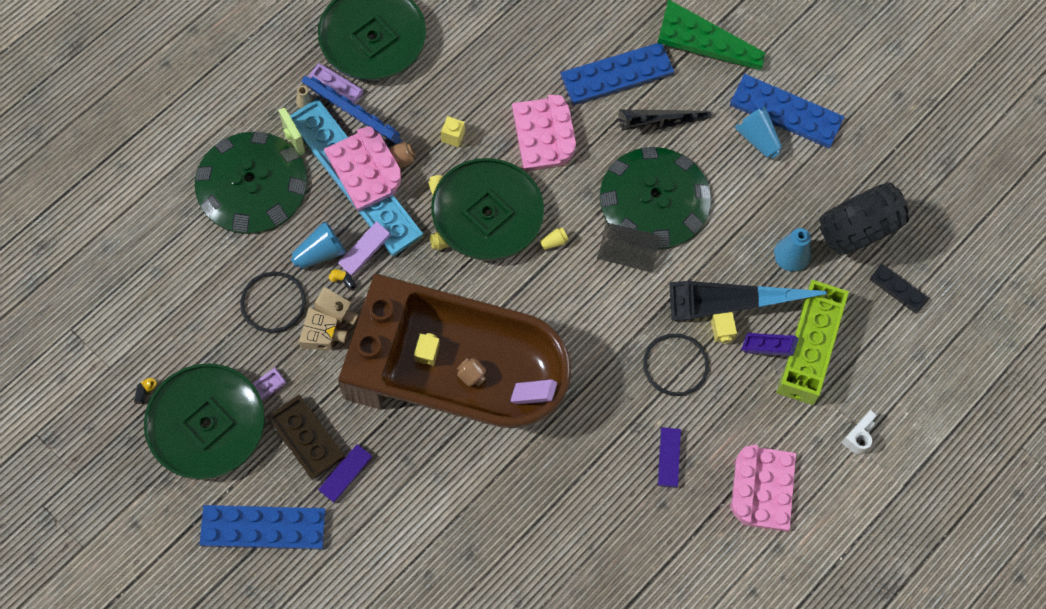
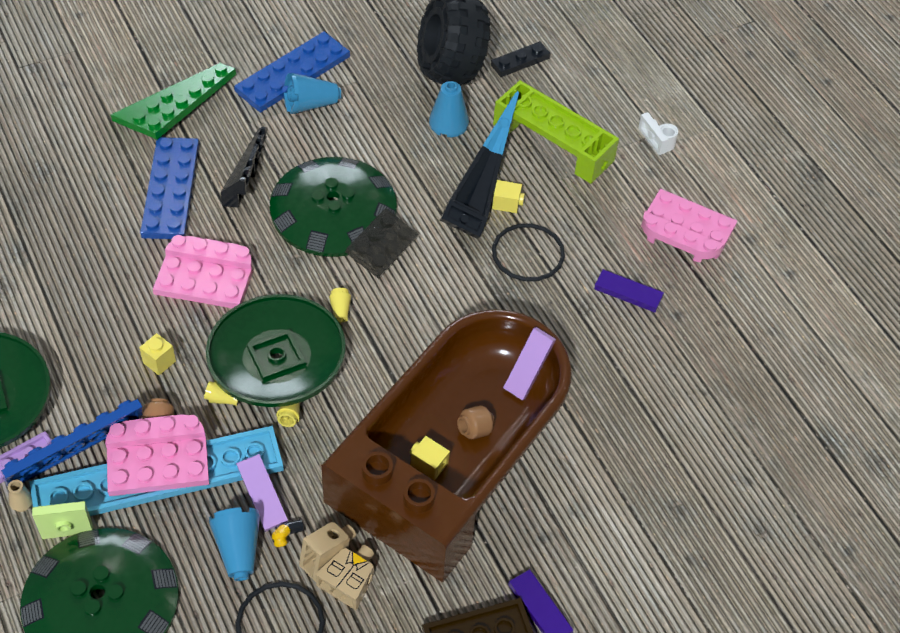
camera: 70 degrees left, 15 degrees down
(770, 344) = (545, 162): dark purple tile -> none

